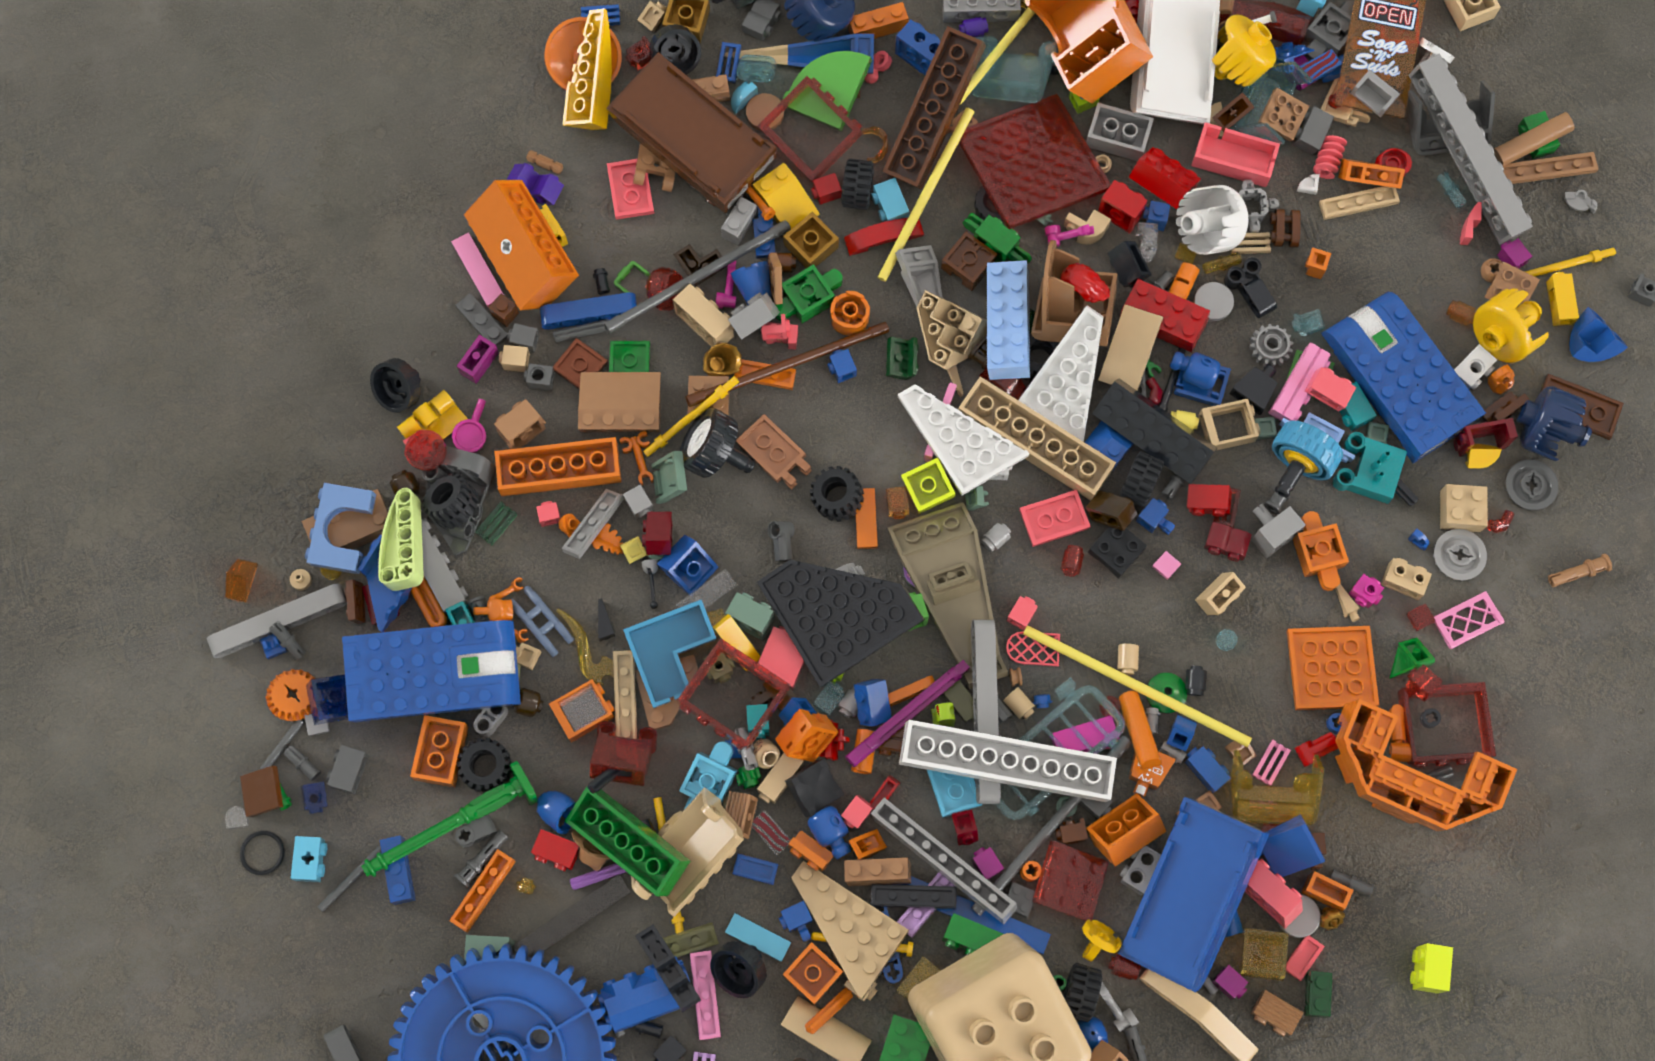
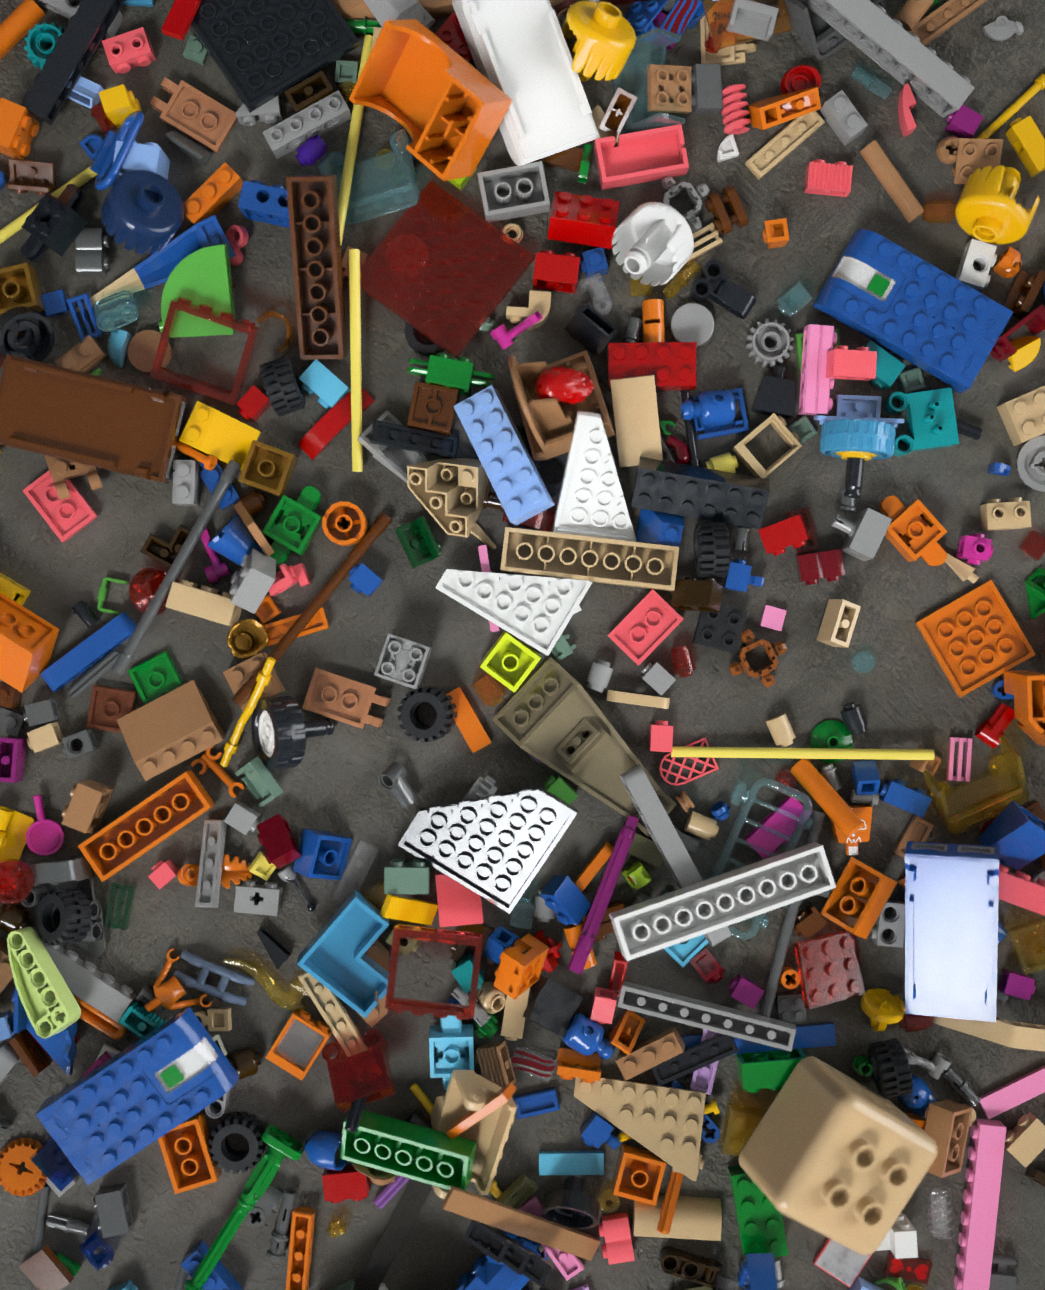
camera: 25 degrees left, 15 degrees up
(620, 583) = (247, 903): none -> light grey brick
(690, 956) = (520, 1223): none -> medium nougat tile
(710, 831) = (473, 1117): none -> orange tile
(711, 42) = (55, 303): none -> blue tile
(749, 350) = (267, 610): none -> orange tile
(764, 1023) = (617, 1238): none -> coral brick
(773, 995) = (608, 1194): none -> clear yellow plate
(840, 440) = (403, 661): none -> light grey brick
(940, 276) = (413, 439): none -> black tile
(1019, 572) = (638, 699): none -> tan beam
(1044, 563) = (657, 677): none -> light grey brick
(1137, 604) = (766, 678): none -> dark orange piece
(1174, 129) = (567, 159): none -> reddish brown slope
(1187, 139) = (585, 162): none -> green bar
(1381, 244) = (828, 178): none -> coral brick
(1415, 204) = (843, 118): none -> light grey brick
(1433, 272) = (892, 181): none -> medium nougat brick

